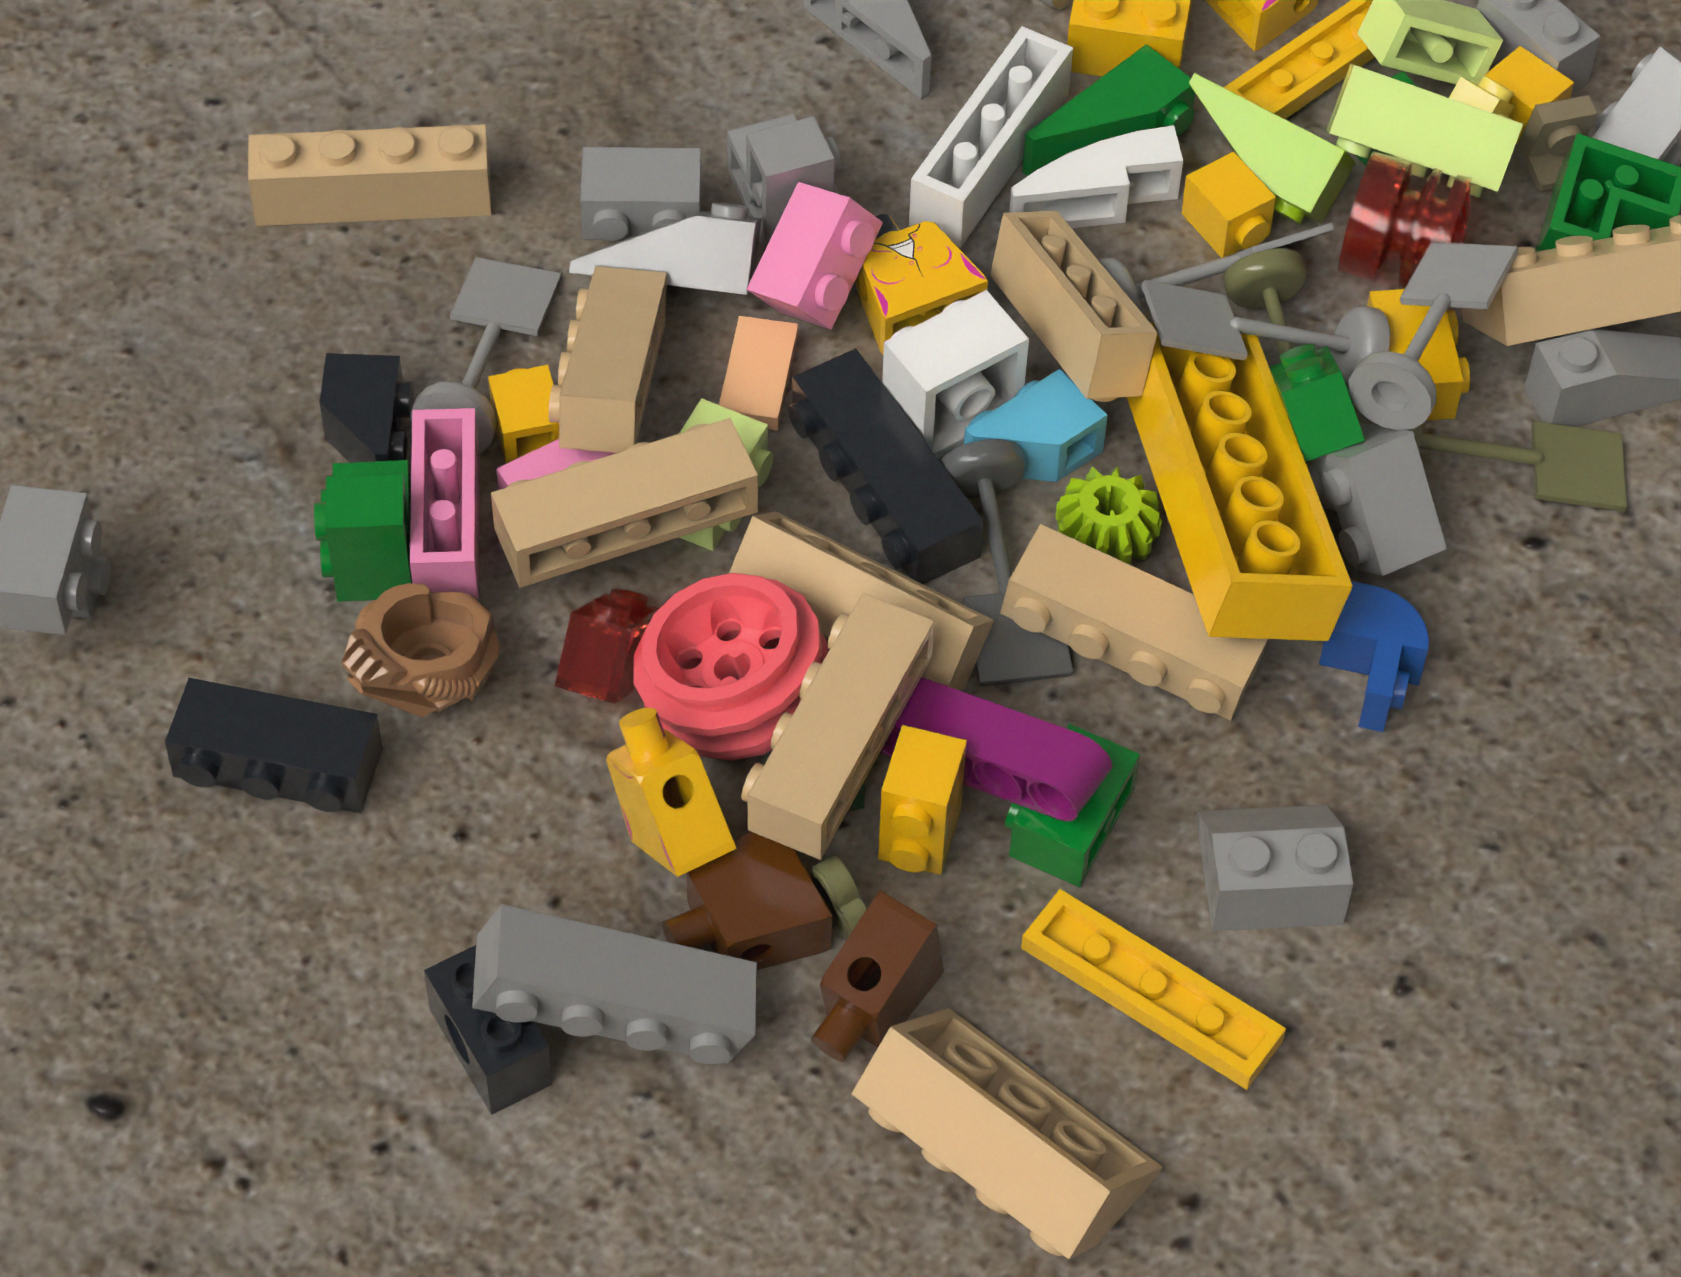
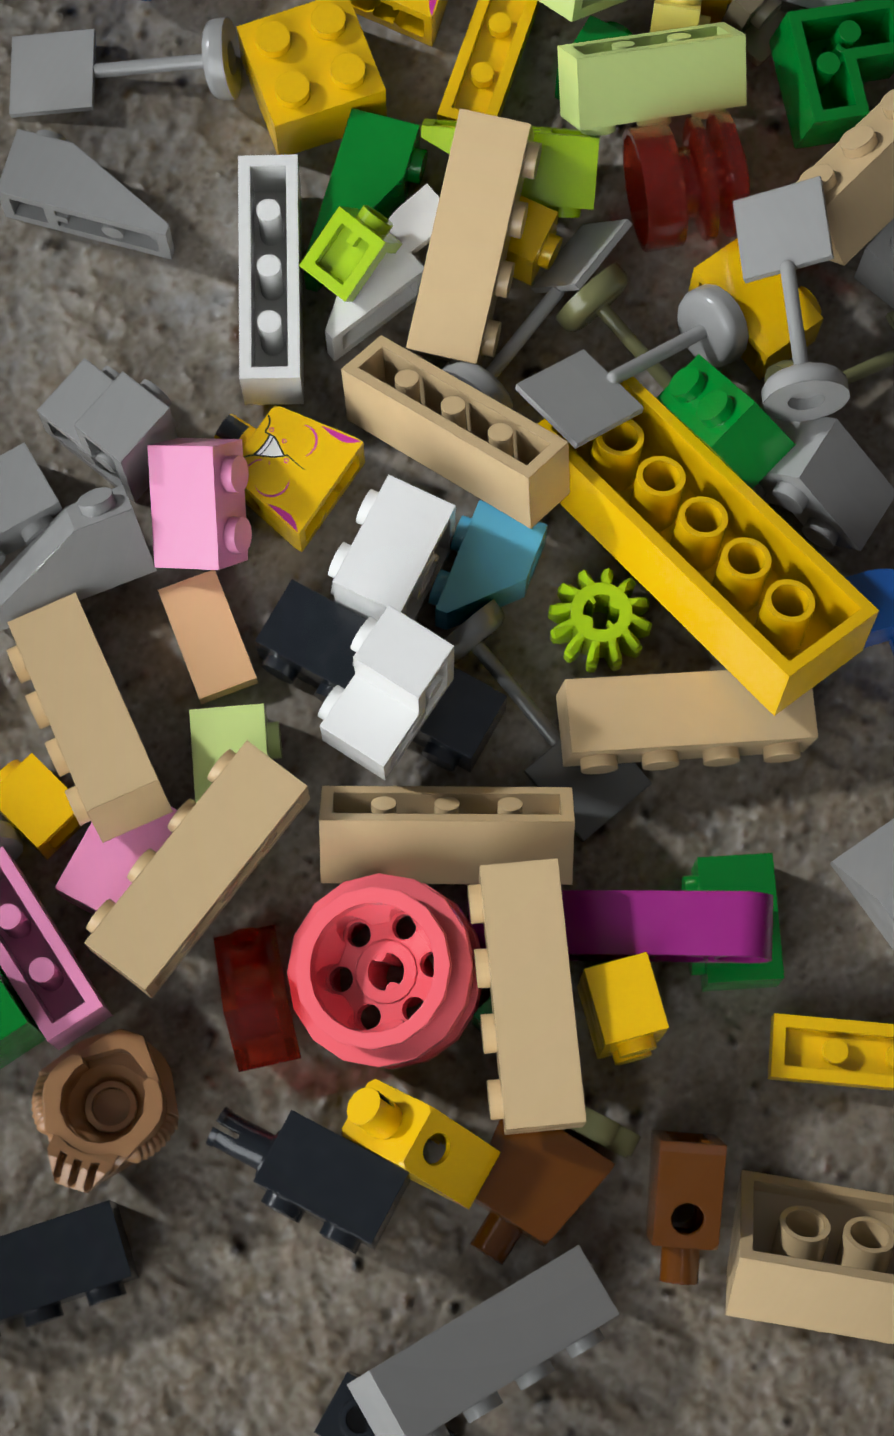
camera: 30 degrees left, 20 degrees up
(570, 794) = (317, 1174): none -> black brick
(884, 452) = (394, 689): none -> white brick
(1070, 131) = (350, 250): none -> lime bracket
(1183, 169) = (472, 238): none -> tan brick

